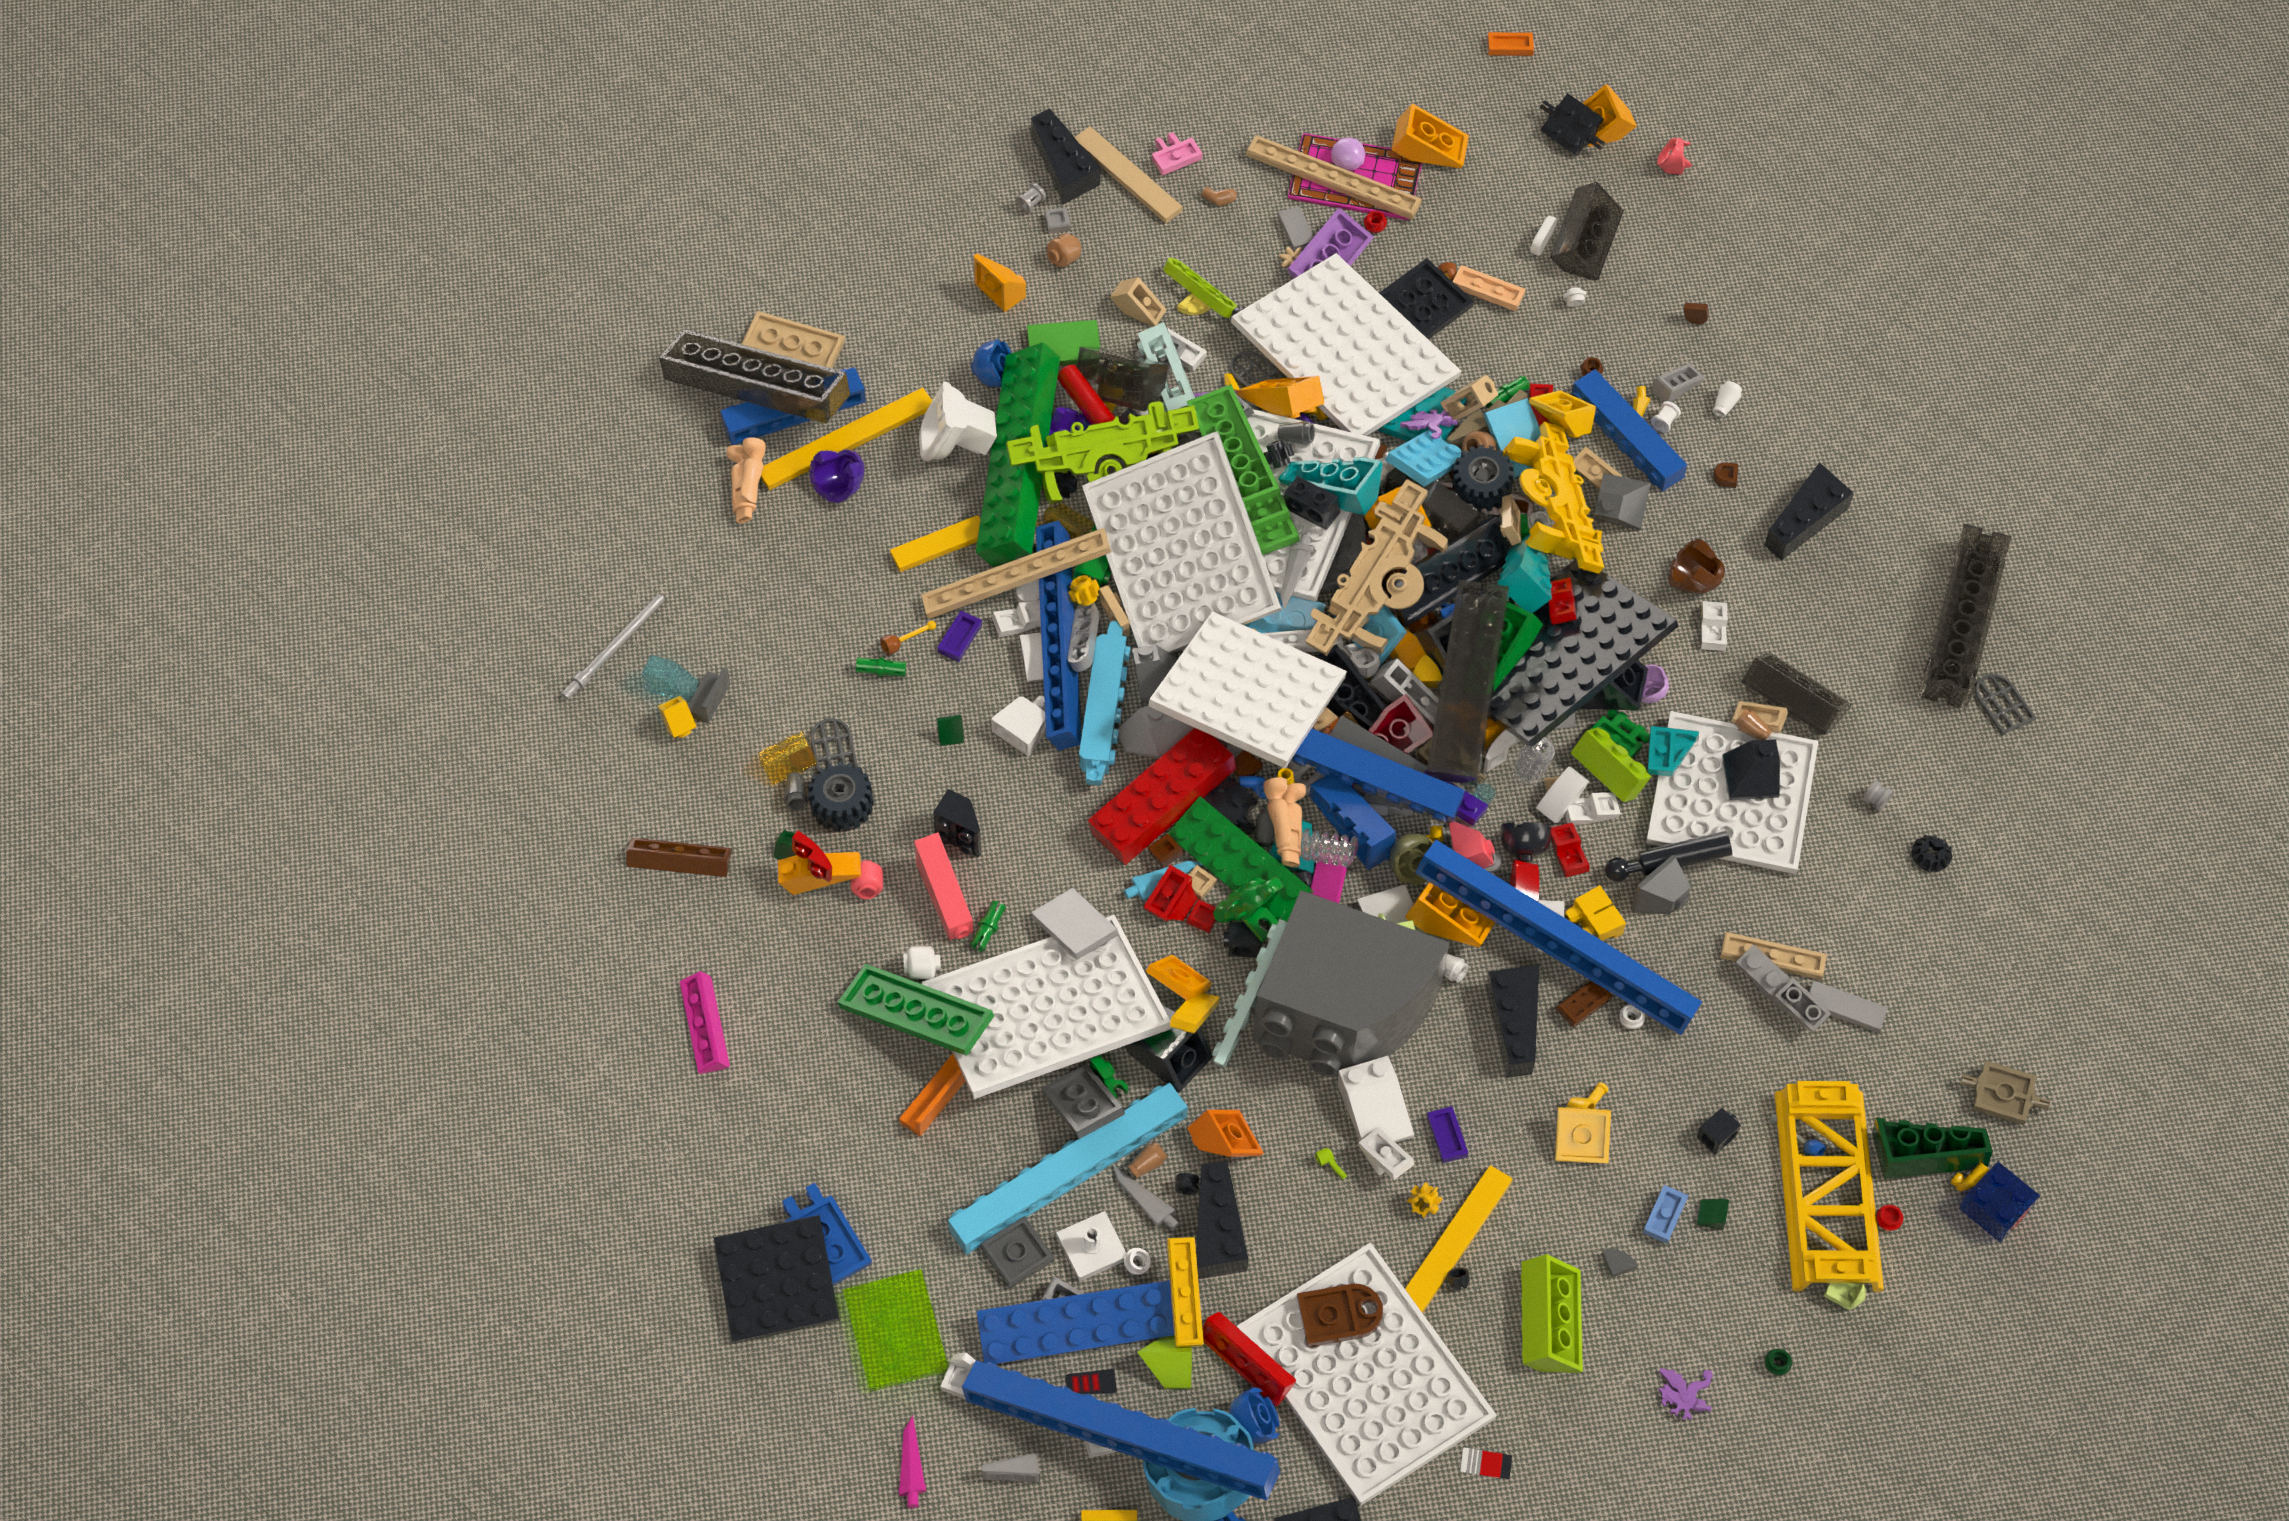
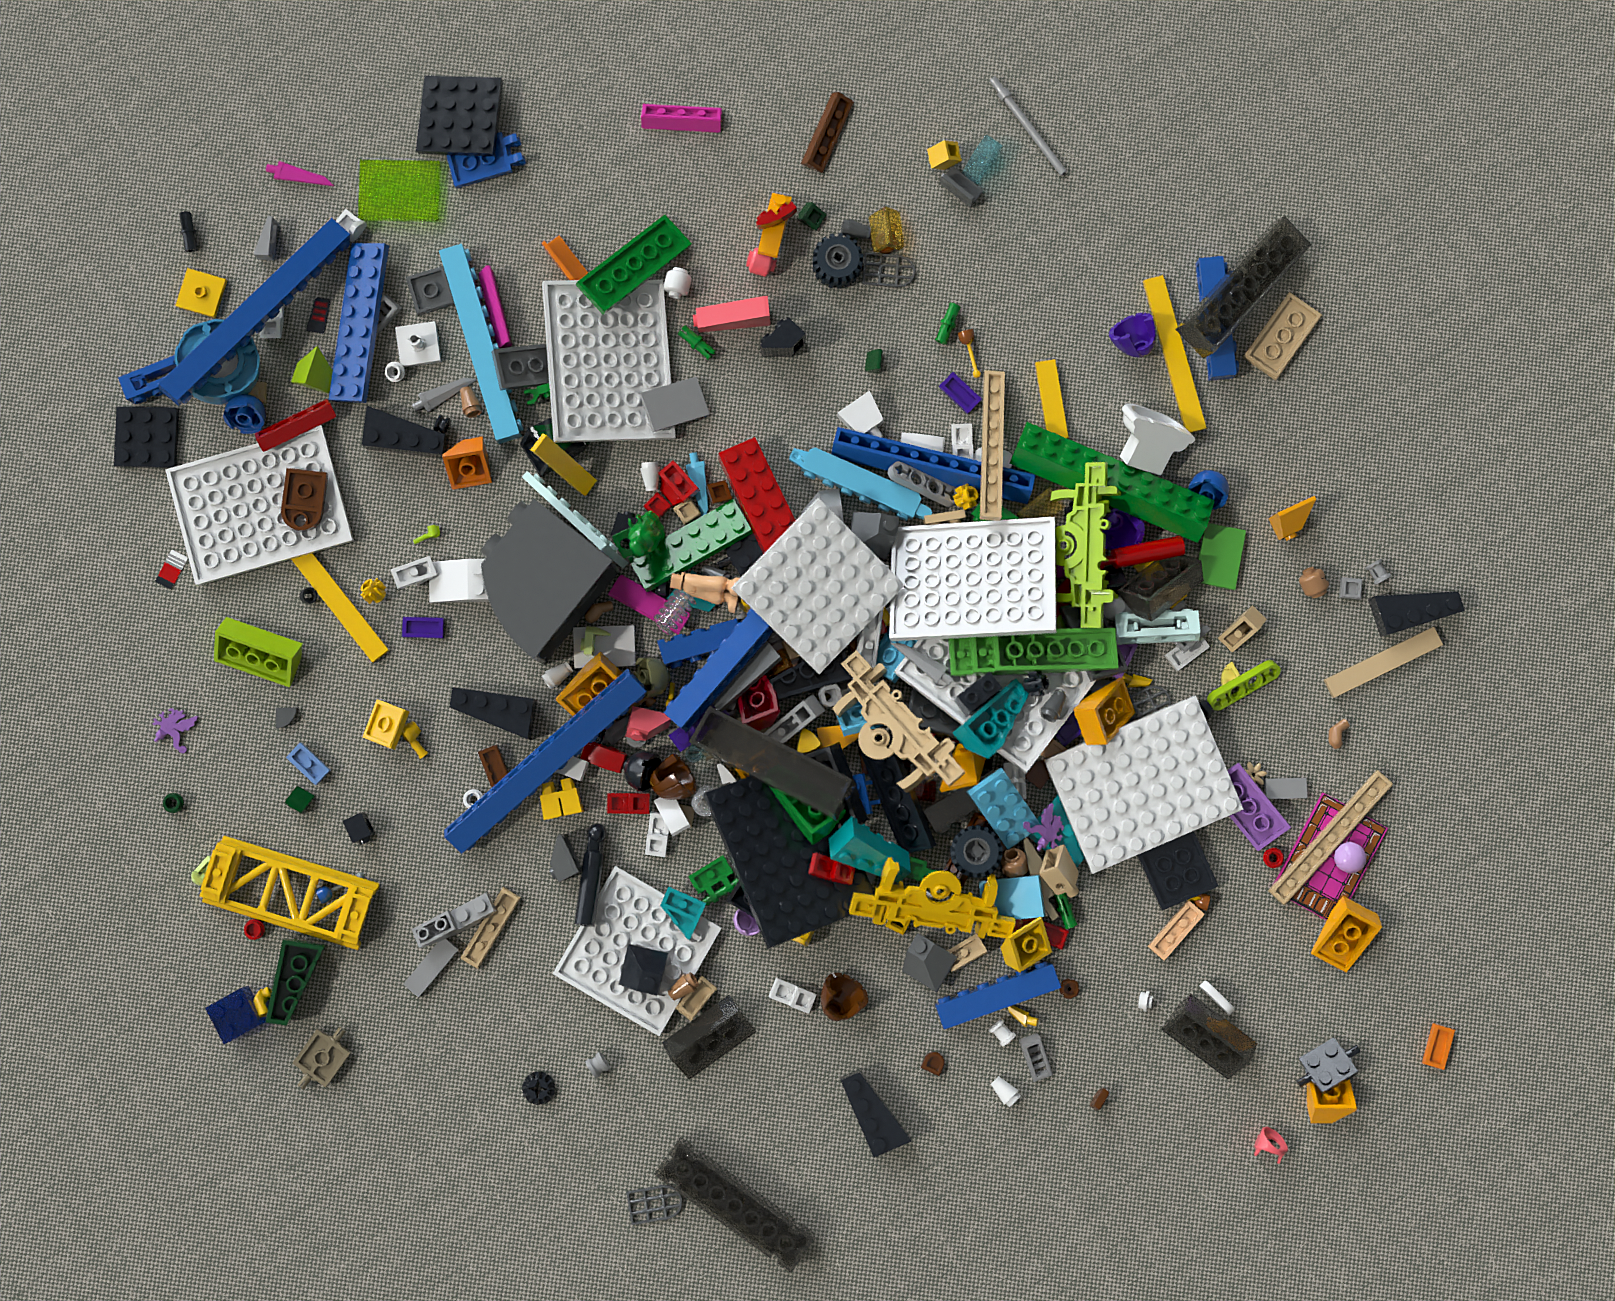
camera: 110 degrees right, 25 degrees up
(746, 476) = (1153, 262): light nougat piece -> none
(1010, 1166) = (495, 307): none -> dark pink slope
(1169, 930) = (650, 475): none -> white cone
(1177, 155) = (1390, 709): bright pink hinge -> none
(1179, 977) = (604, 467): light orange tile -> none
(1184, 1292) = (348, 391): yellow tile -> none
(1511, 520) = (928, 860): tan plate -> none
(1526, 801) = (673, 779): none -> reddish brown hair
(1611, 764) = (685, 861): lime brick -> none

